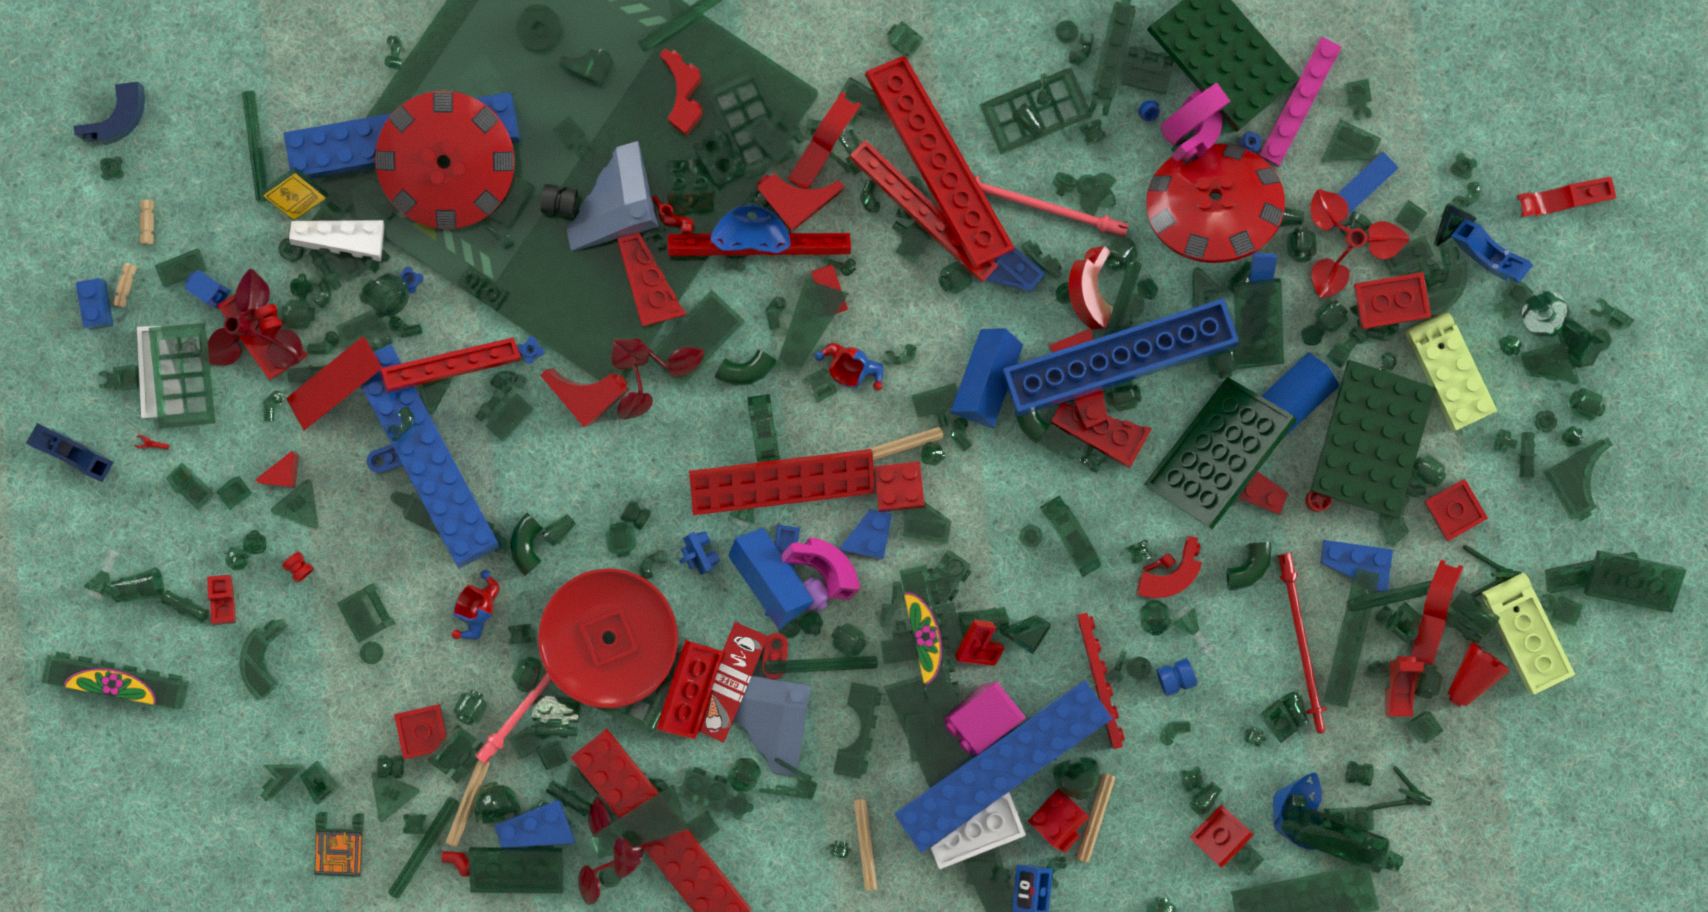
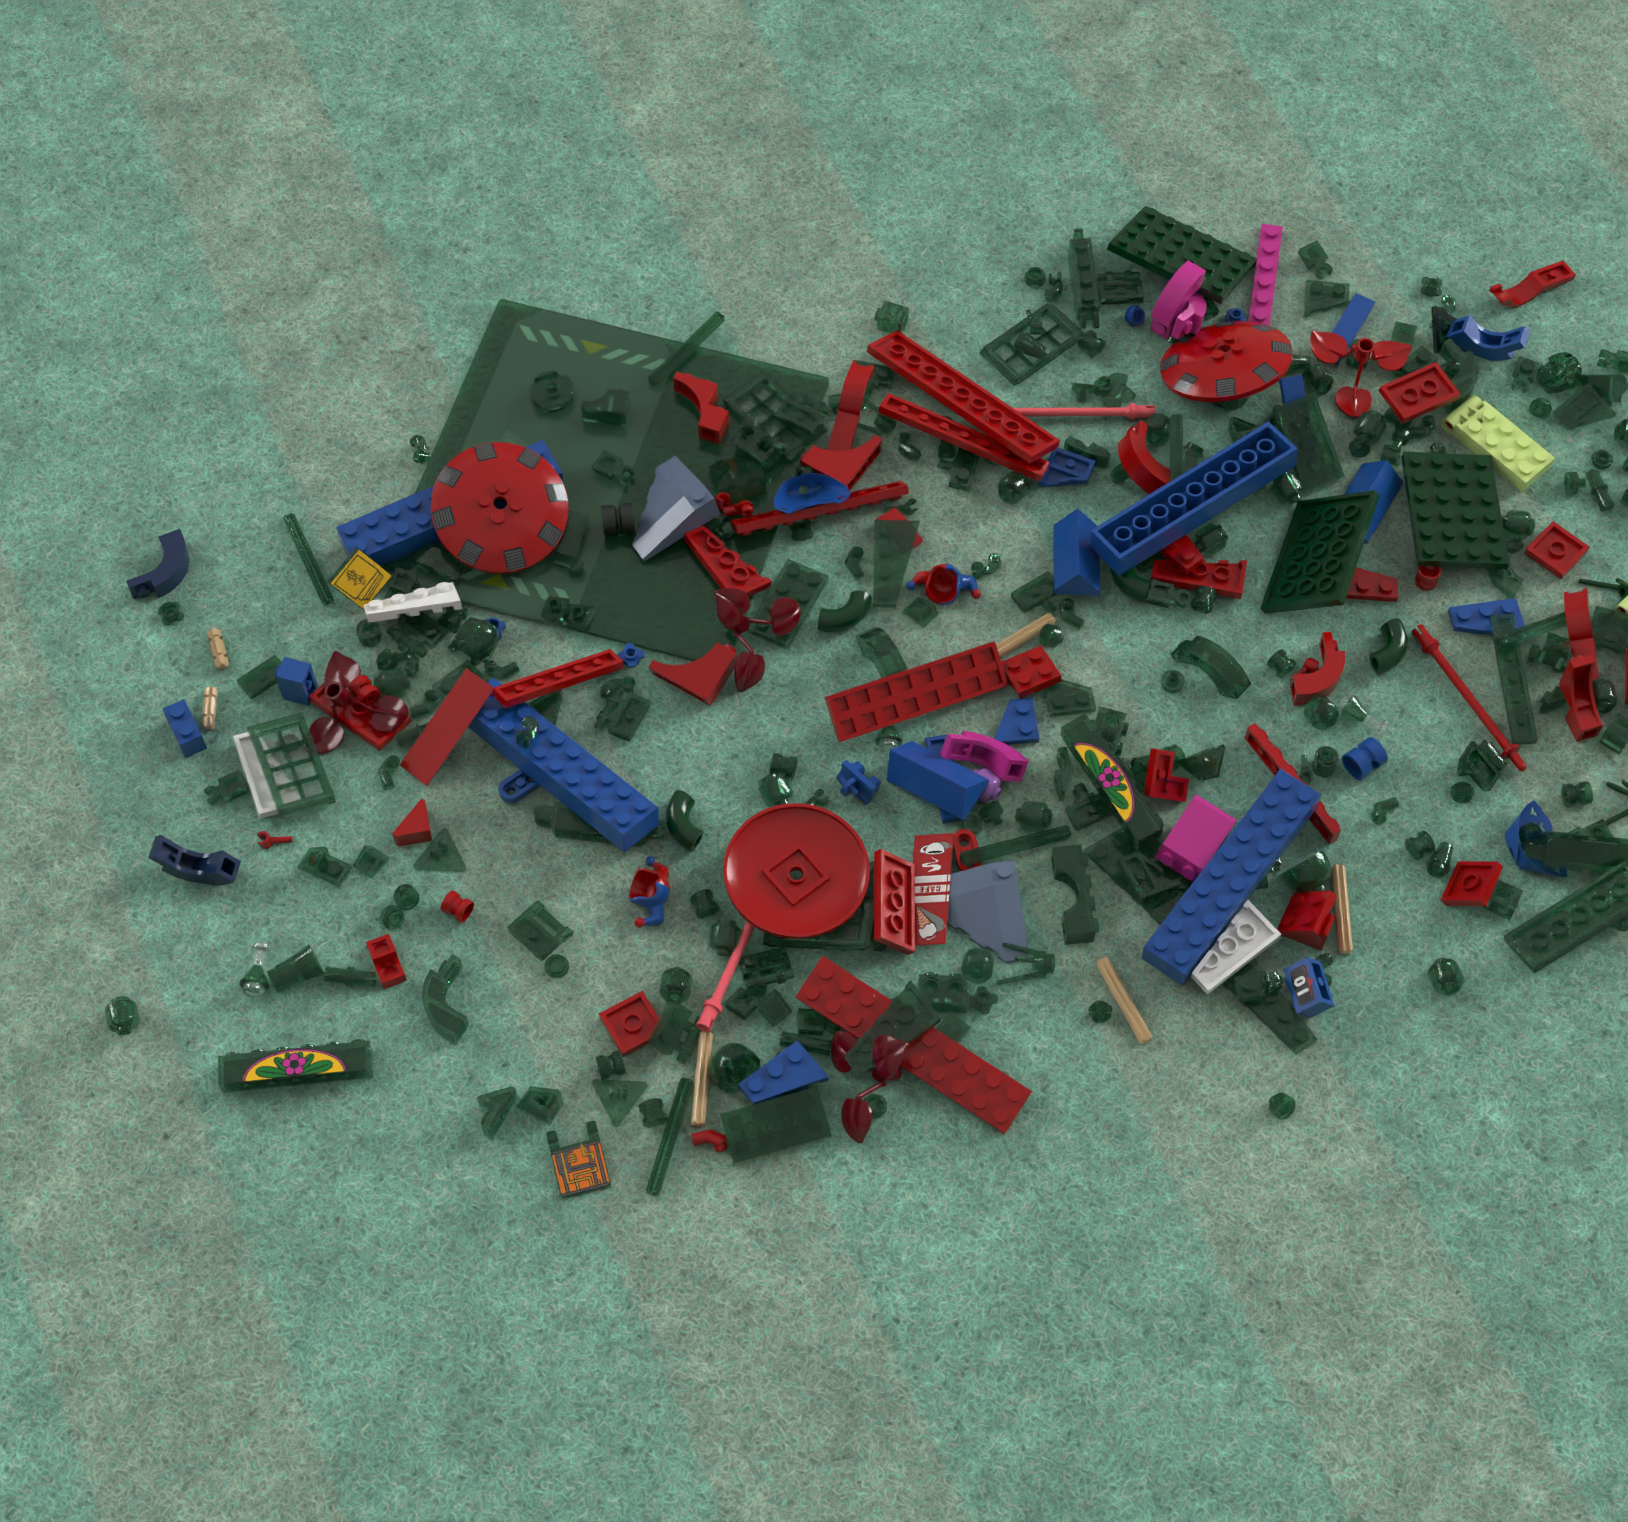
camera: 15 degrees left, 25 degrees down
(558, 530) = (710, 802): clear green cone -> none

